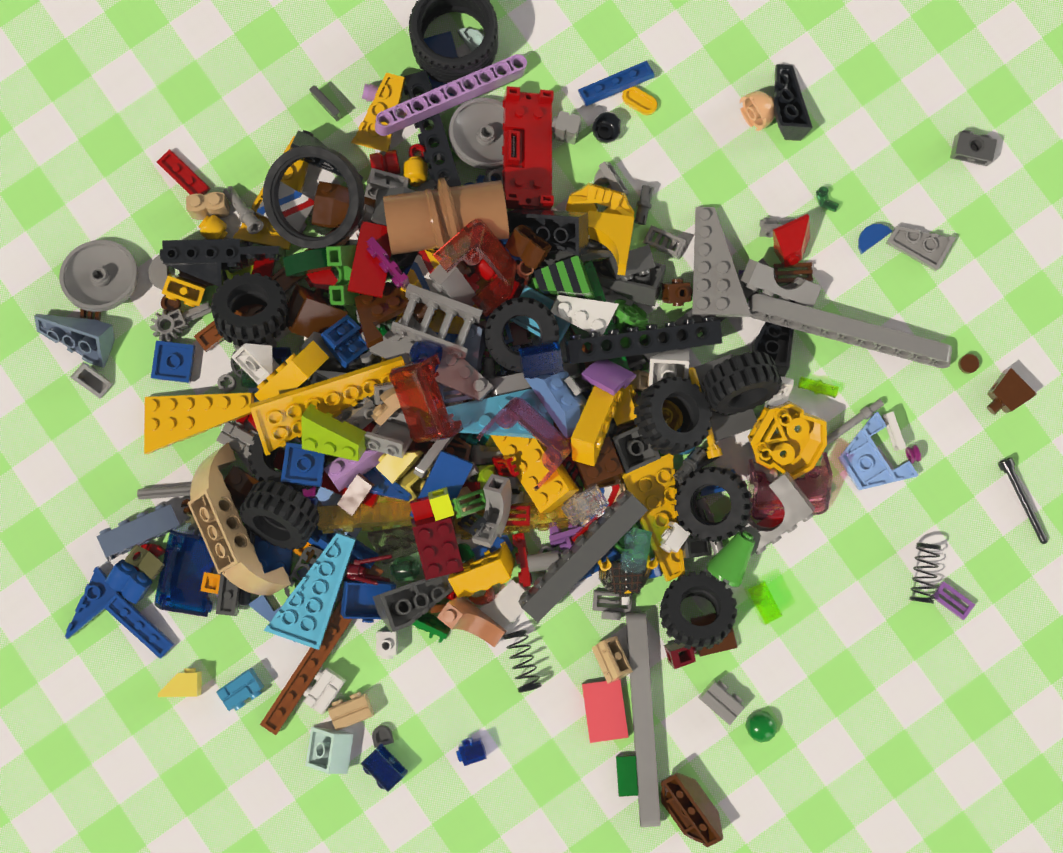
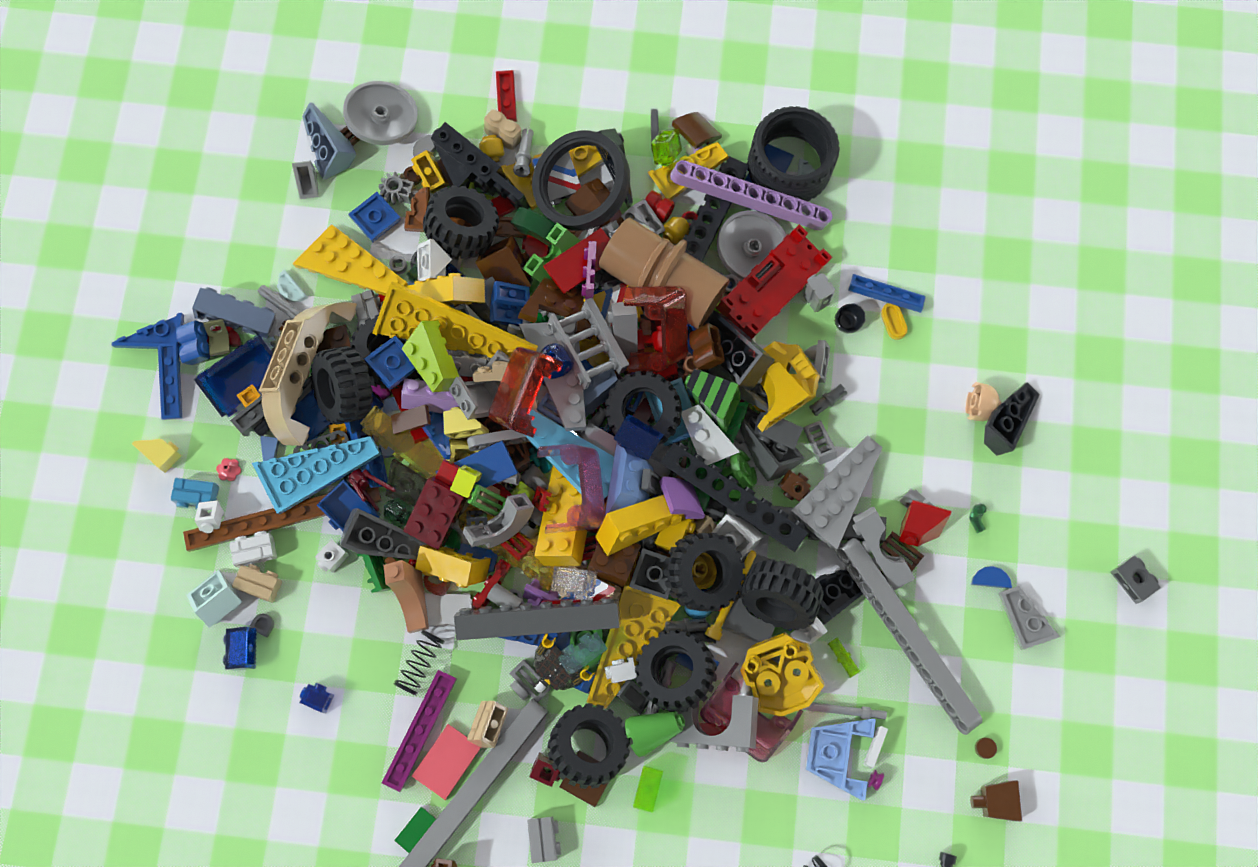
camera: 40 degrees right, 10 degrees down
(160, 475) = (289, 289): none -> light aqua tile
(202, 322) = (419, 203): none -> dark orange tile
(251, 647) = (232, 470): none -> coral plant
(269, 697) = (208, 521): none -> white brick
(350, 110) = (666, 147): none -> clear neon green brick
(358, 75) = (696, 129): none -> reddish brown slope
(566, 707) = (419, 731): none -> magenta plate

